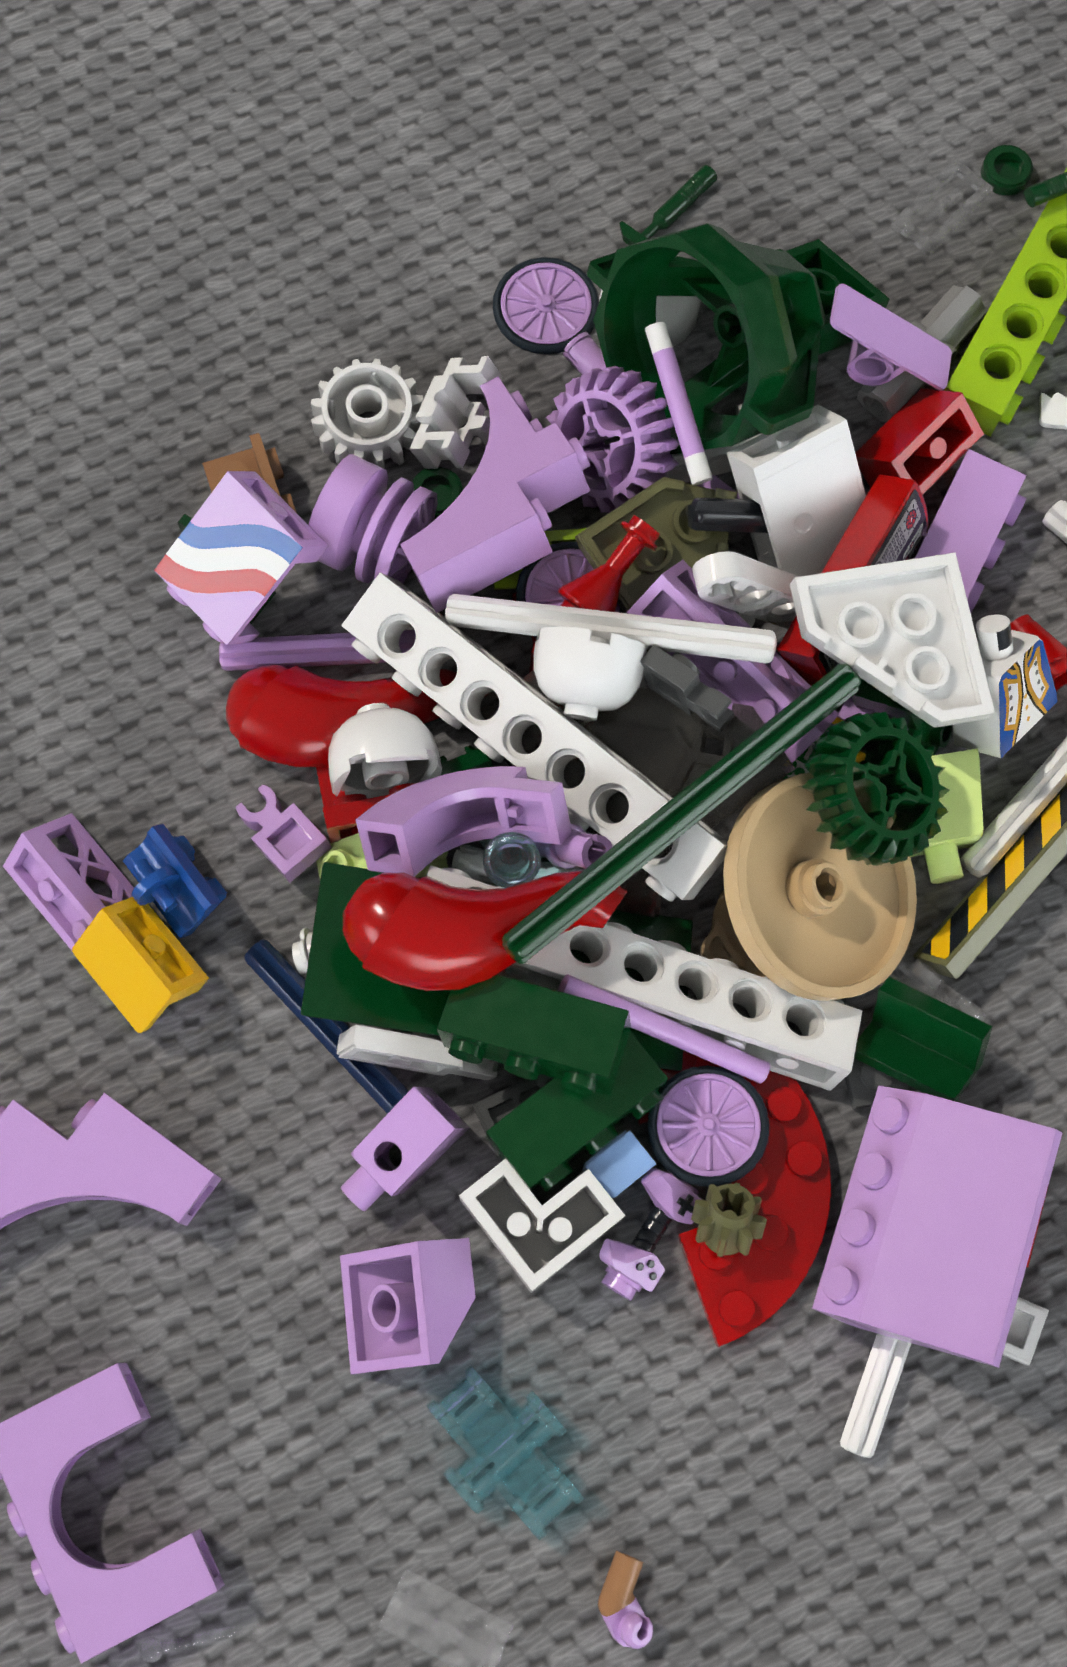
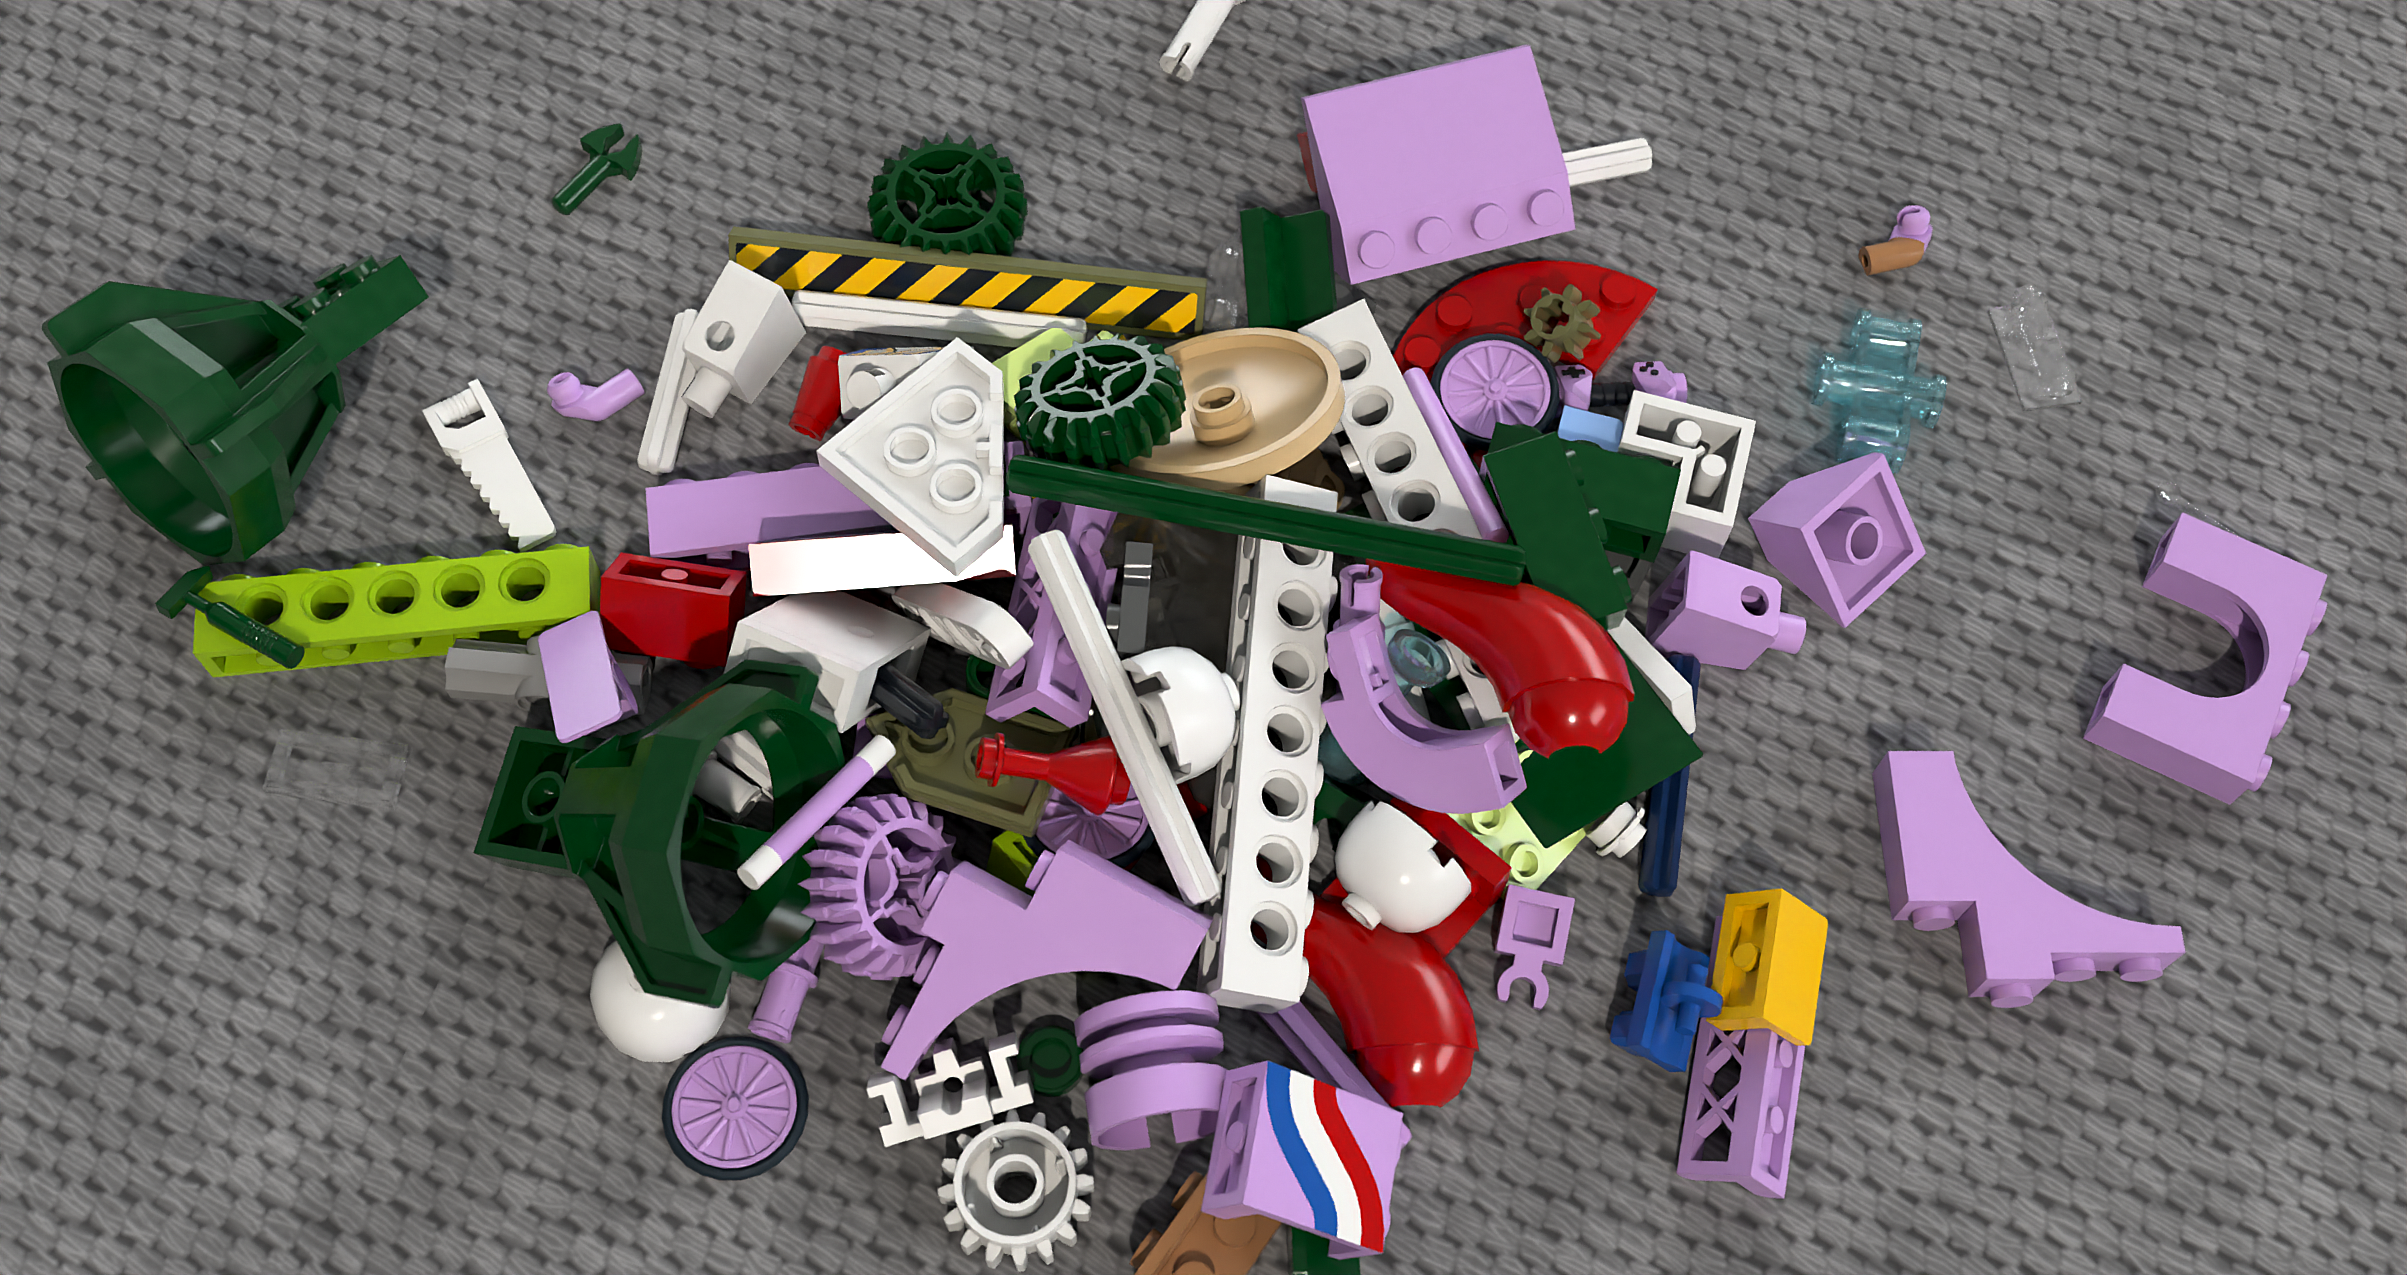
camera: 125 degrees left, 10 degrees down
(673, 207) = (523, 1051): dark green piece -> none
(1007, 169) = (244, 733): dark green tile -> none

